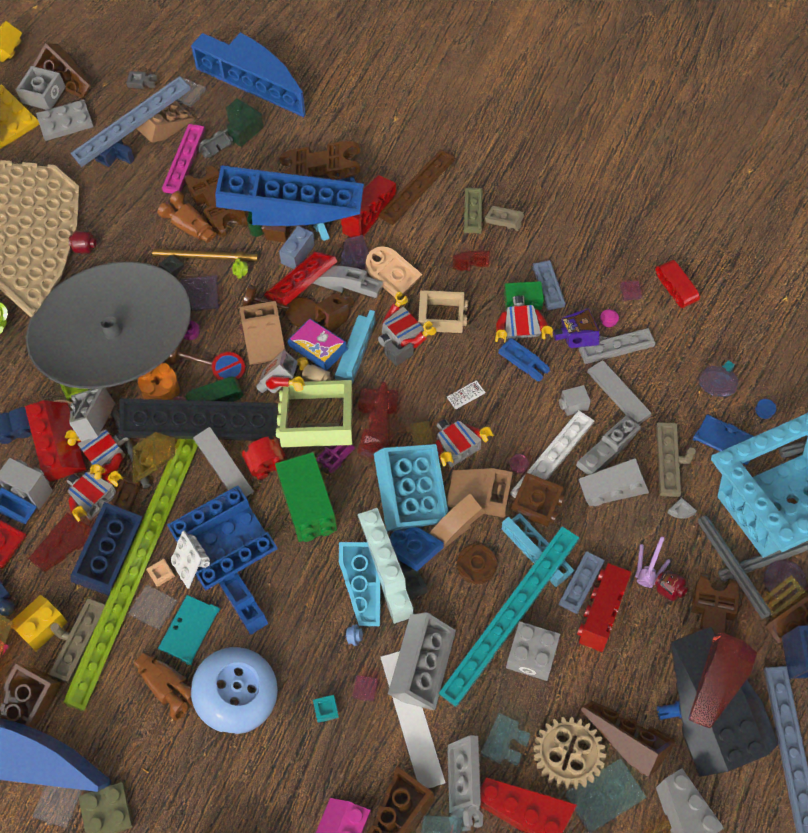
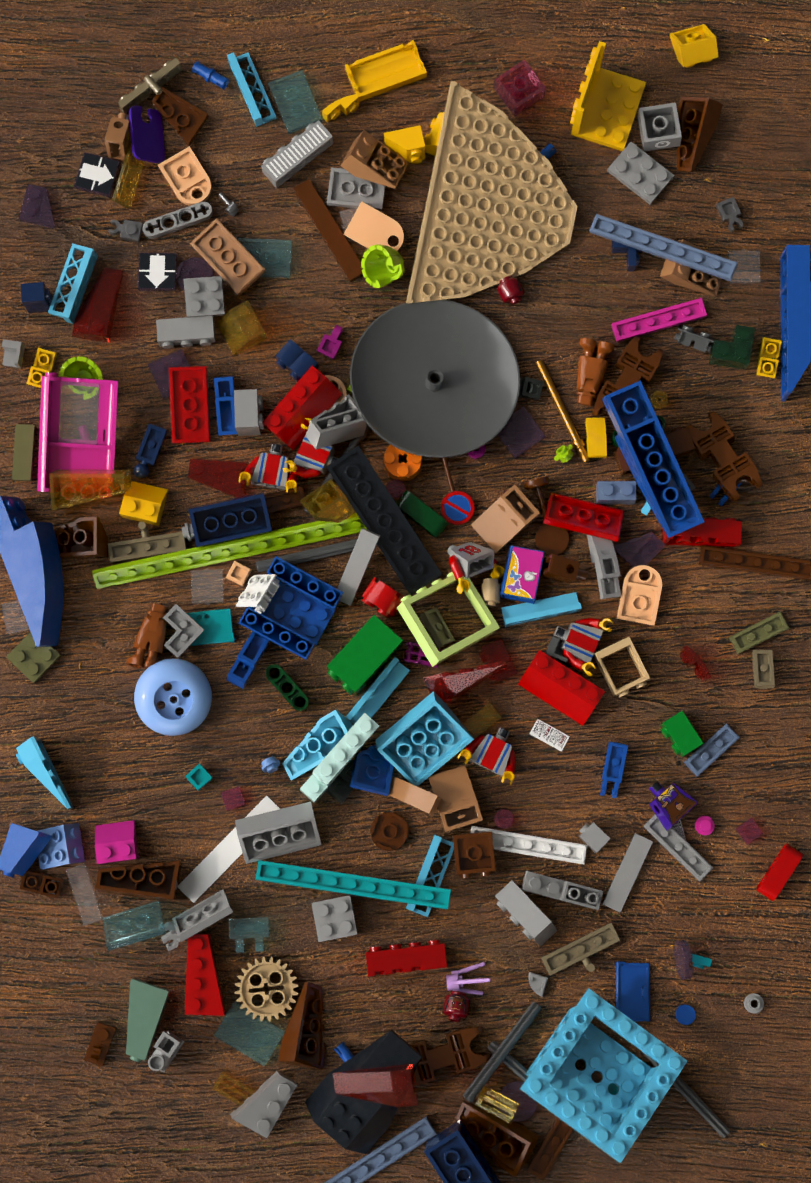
camera: 60 degrees right, 20 degrees up
(19, 392) = (330, 344): none -> magenta plate
(91, 593) = (188, 532): none -> light grey plate
(179, 642) = (186, 631): none -> light grey plate
(187, 500) = (309, 555): none -> dark grey axle
(244, 240) = (596, 437): none -> yellow slope
(269, 109) = (768, 357): none -> yellow slope
(282, 578) = (284, 679): none -> dark green beam
(345, 506) = (379, 691): none -> medium azure fence
(431, 362) = (561, 687): none -> red slope
(521, 322) = (648, 747): torso -> none
(581, 582) = (419, 928): sand blue plate -> none
(777, 357) = (747, 1003): none -> light grey plate

